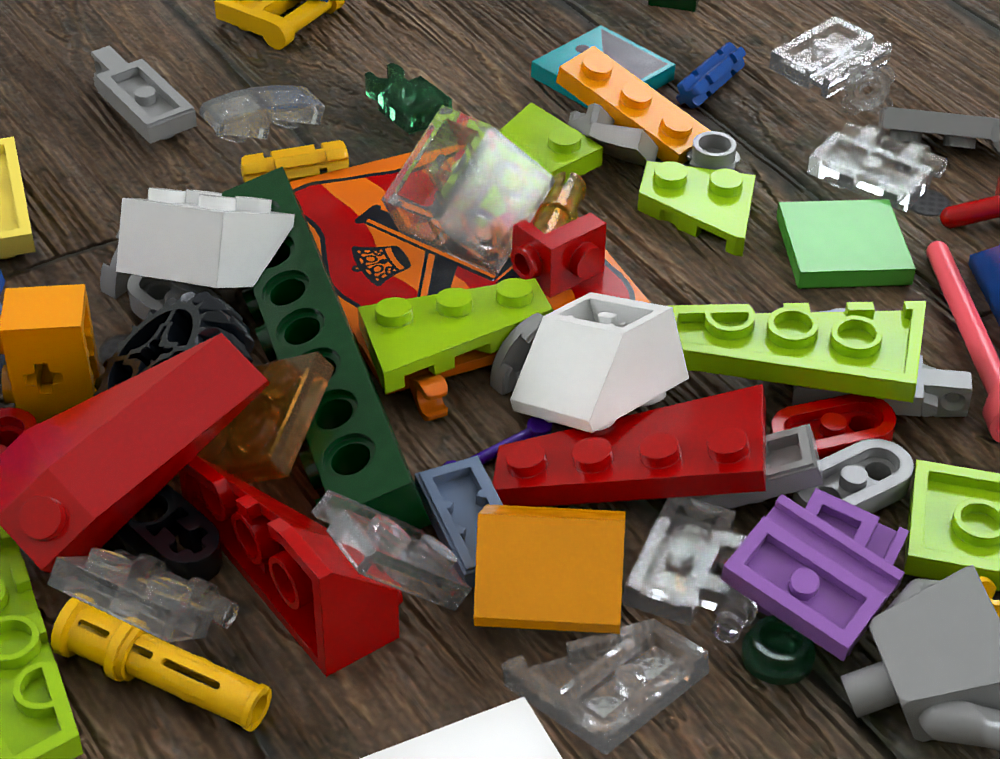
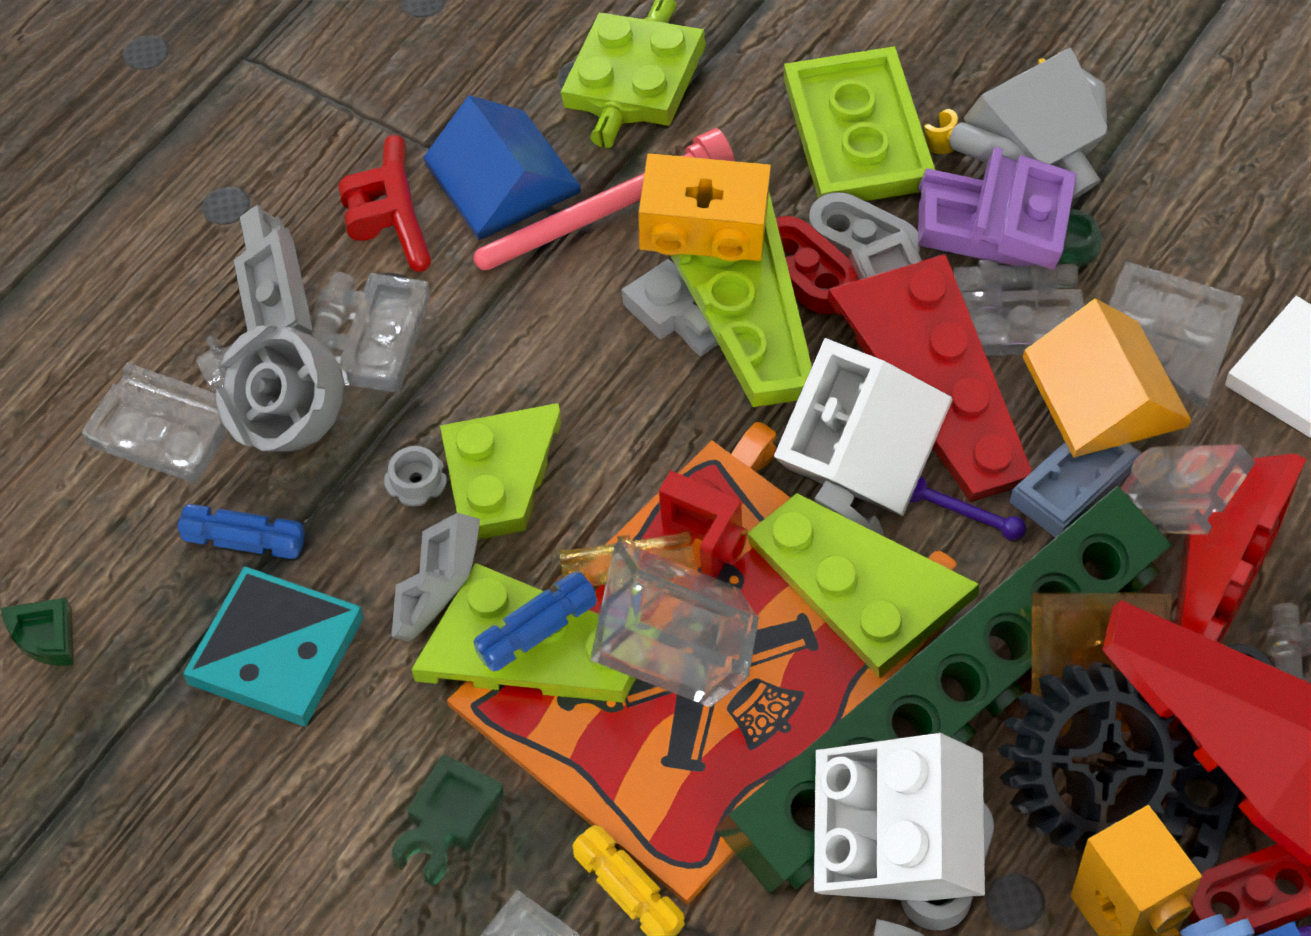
camera: 110 degrees left, 15 degrees up
(514, 125) = (535, 621): none -> blue axle
(630, 102) = (363, 574): light orange plate -> none
(818, 94) = (279, 389): none -> light grey cylinder
(844, 243) = (510, 331): tile -> none
(881, 302) = (704, 207): none -> light orange brick

